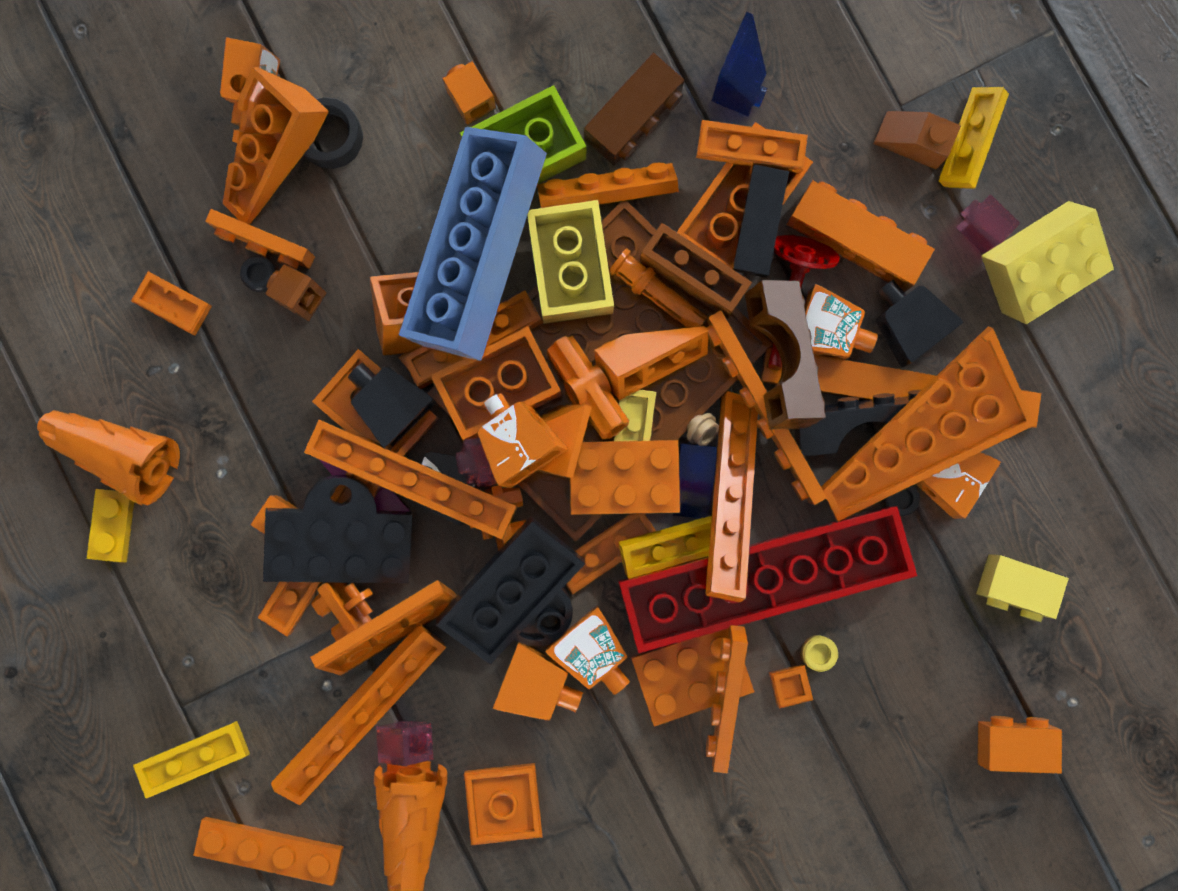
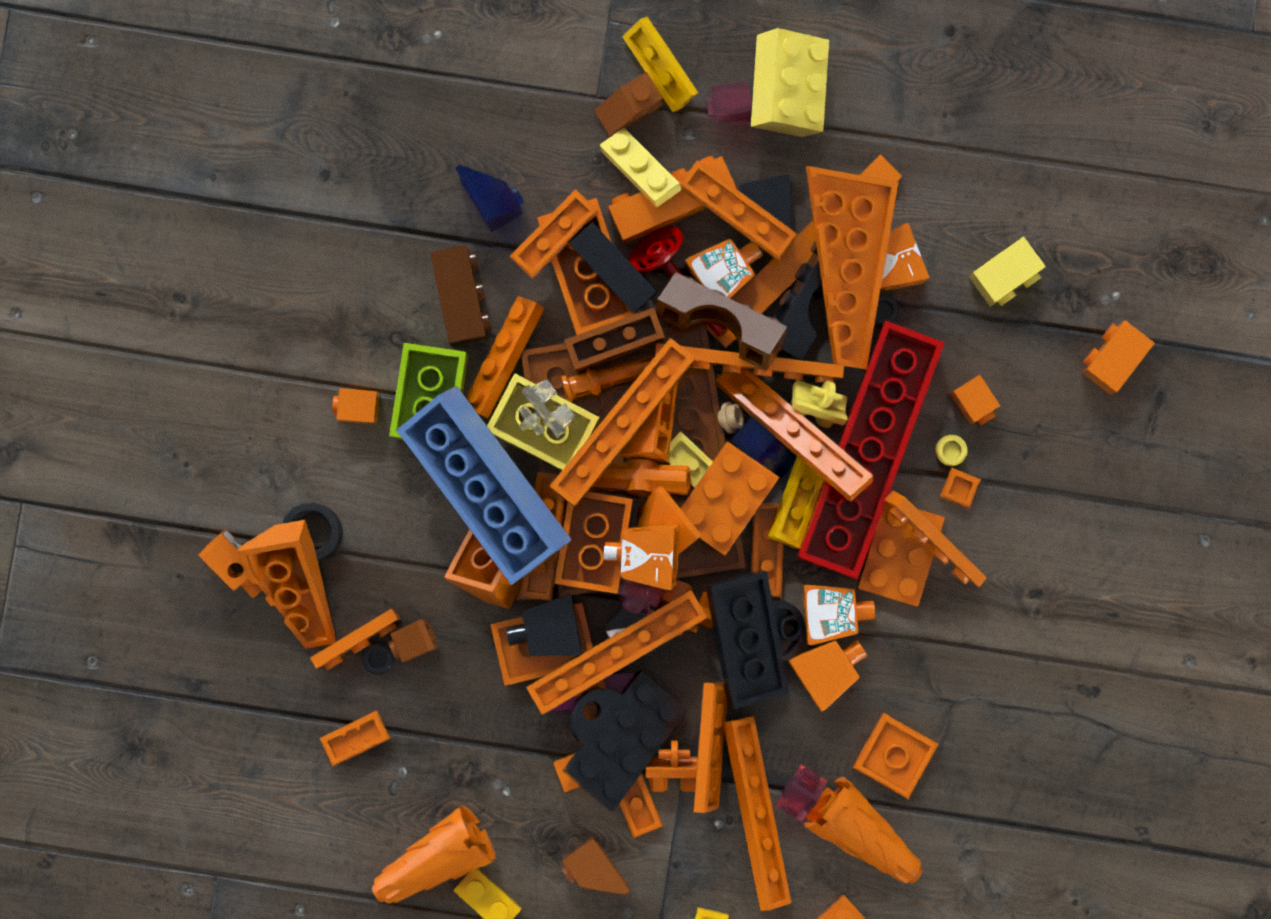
camera: 50 degrees left, 0 degrees up
(202, 603) = (593, 869): none -> dark orange slope
(590, 233) = (537, 397): none -> clear hips
(624, 329) = (622, 422): none -> orange plate
(776, 501) = (820, 402): none -> light yellow hips
(868, 185) = (640, 167): none -> light yellow plate
(882, 643) = (975, 401): none -> orange brick
(896, 298) = (738, 210): none -> orange tile

